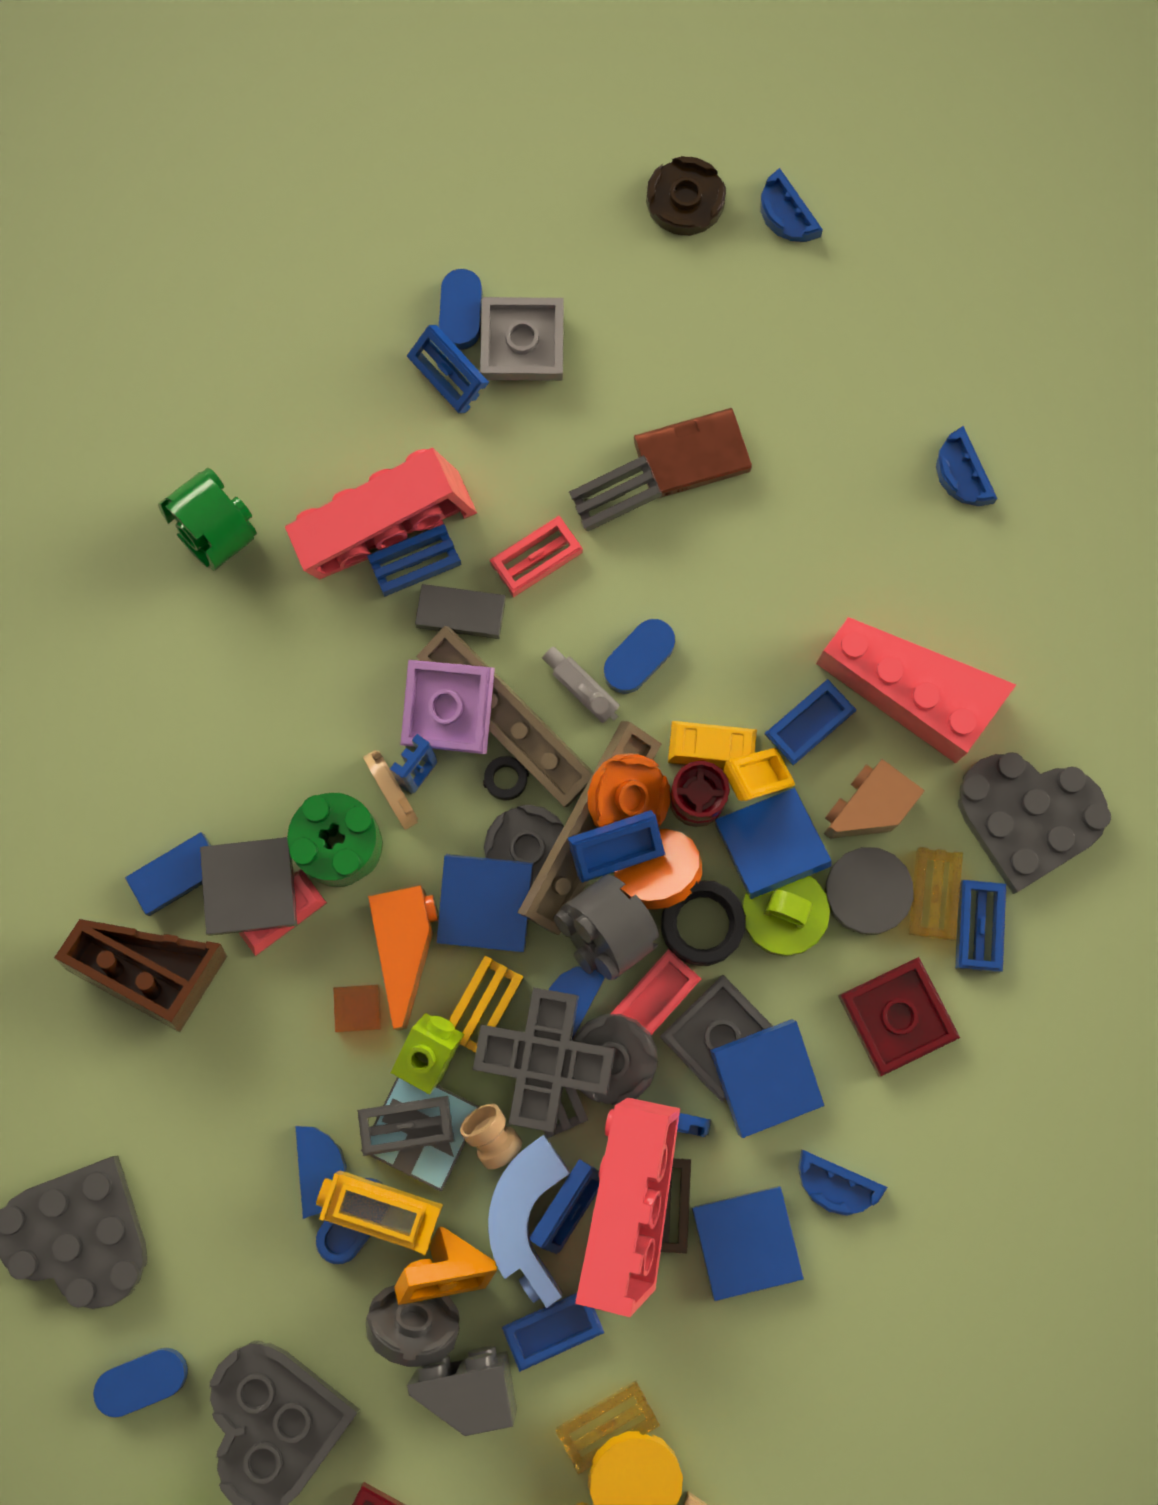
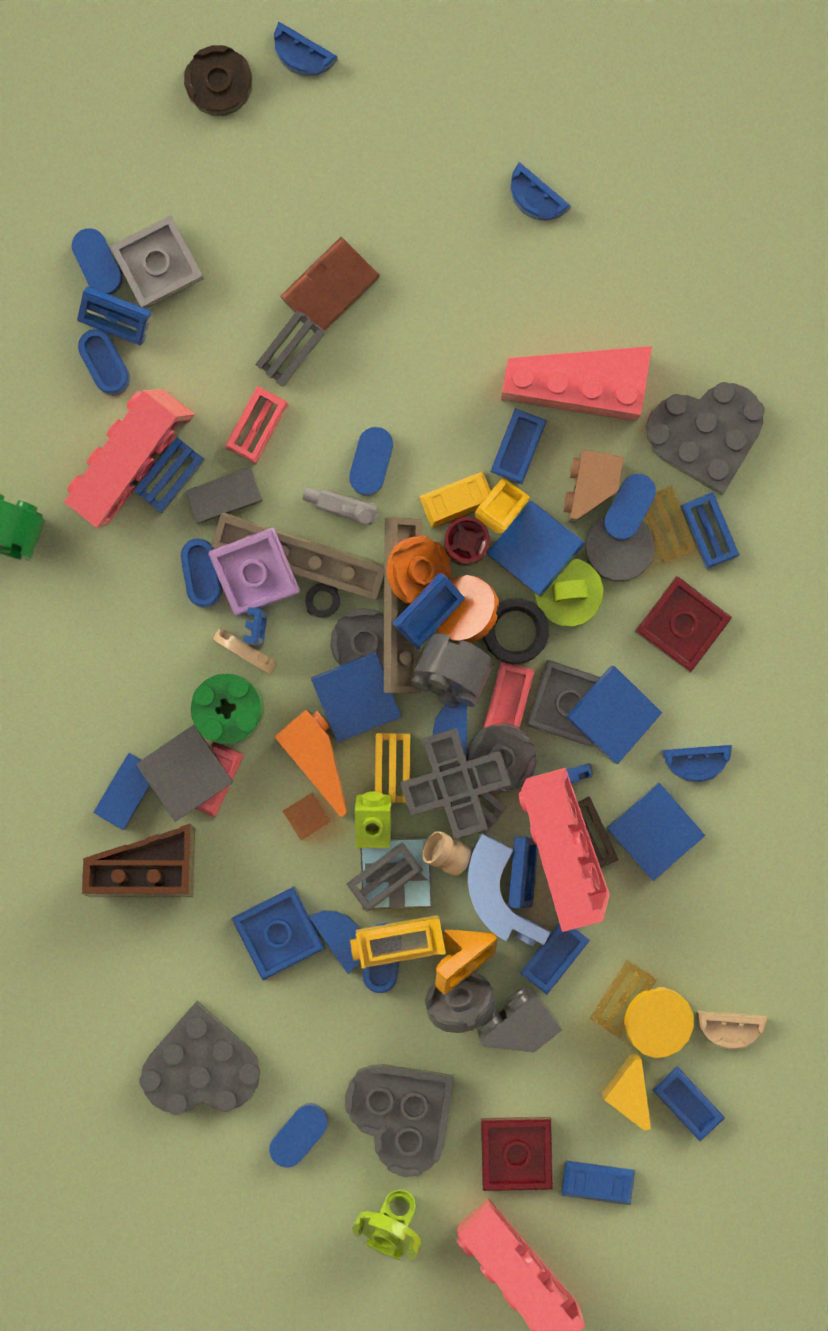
camera: 25 degrees left, 10 degrees up
(251, 1126) = (278, 933): none -> blue tile
(386, 683) = (199, 573): none -> blue tile
(410, 411) = (104, 362): none -> blue tile
(902, 850) = (629, 506): none -> blue tile

